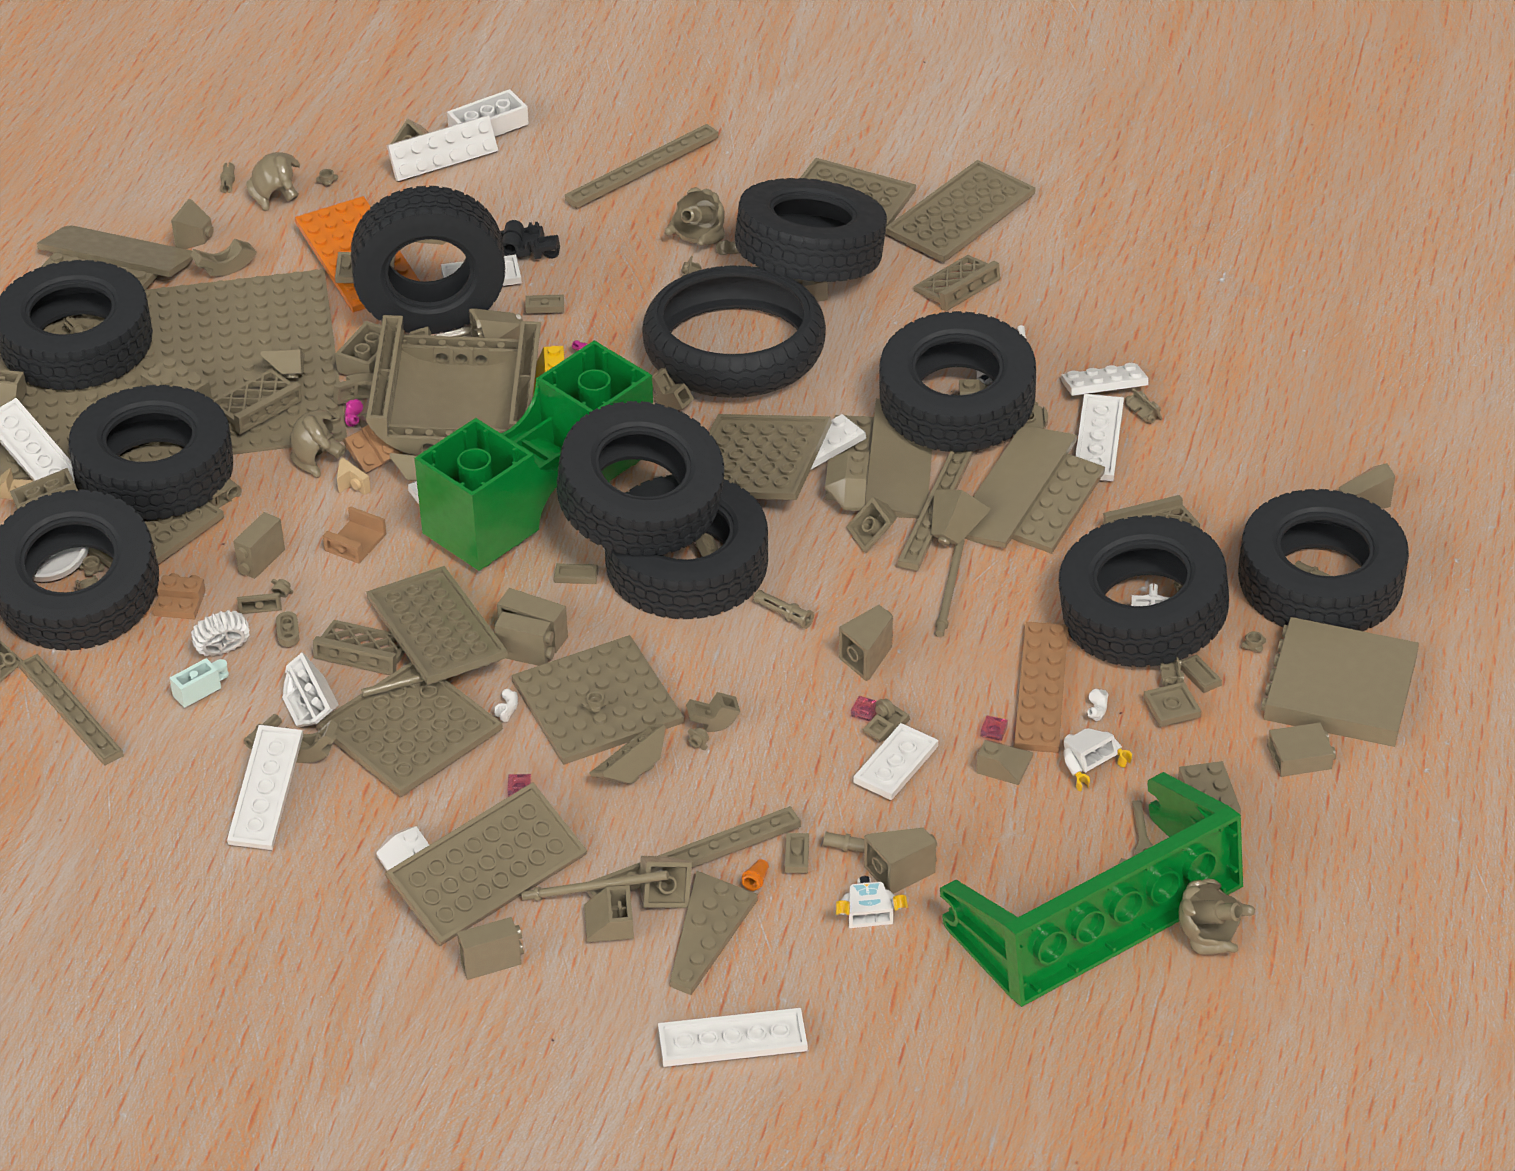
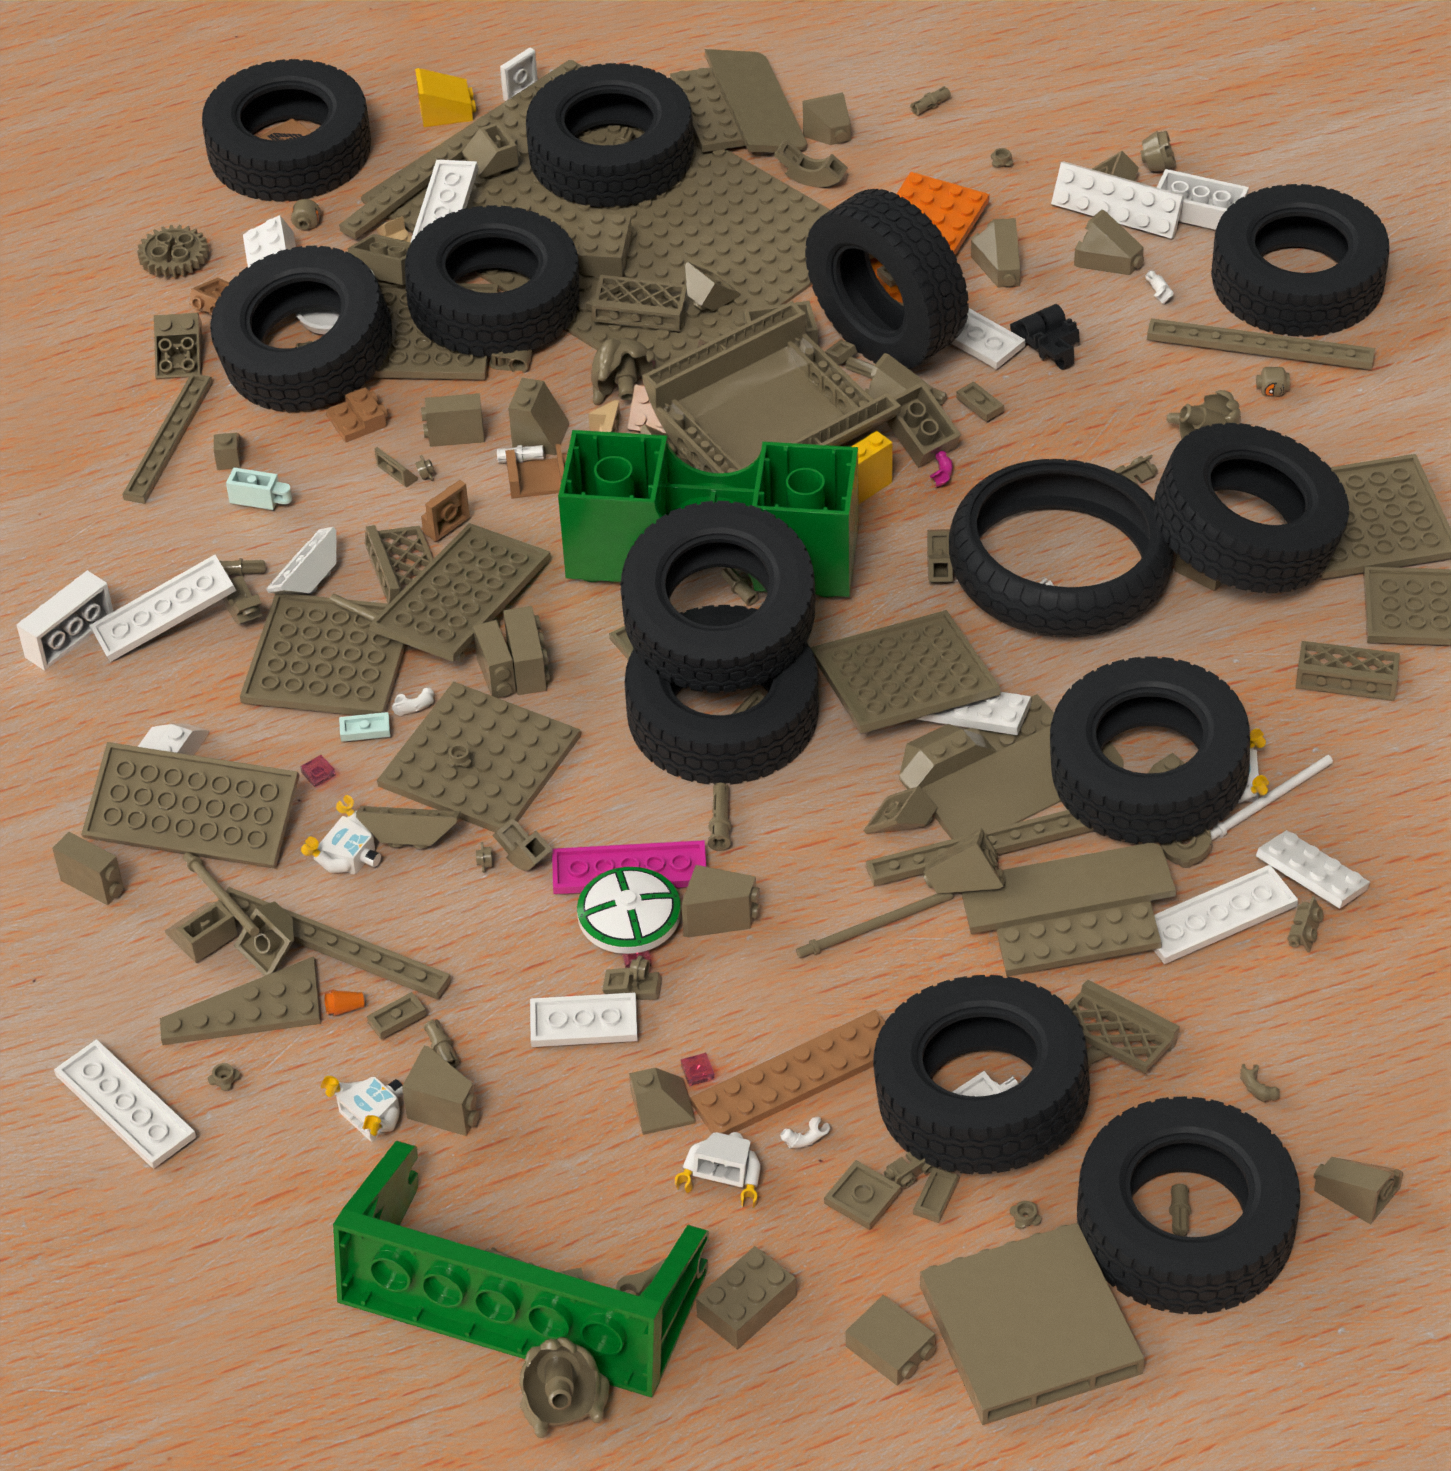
camera: 55 degrees right, 5 degrees up
(130, 680) = (227, 450): none -> dark tan slope
(211, 847) = (64, 620): none -> white brick
(220, 633) = (318, 464): white gear -> none
(272, 174) = (946, 122): dark tan piece -> none
(287, 629) = (378, 504): dark tan plate -> none
(308, 507) = (536, 417): none -> dark tan slope
(317, 542) = (522, 453): none -> white pin
(346, 594) = (446, 511): none -> medium nougat plate
(420, 108) = (1158, 152): none -> dark tan cone
(480, 174) = (1108, 247): none -> dark tan slope
(503, 741) = (364, 726): none -> light aqua plate
(544, 179) = (1163, 291): none -> white piece
(554, 329) = (923, 425): none -> dark tan brick
(599, 135) = (1295, 300): none -> black tyre
(610, 800) = (346, 845): none -> white torso
(682, 178) = (1273, 381): none -> dark tan head
(759, 971) = (220, 1071): none -> dark tan plate
(783, 673) = (579, 865): none -> dark pink plate
(827, 688) = (628, 910): none -> white dish
(1237, 492) = (1260, 1091): none -> dark tan piece

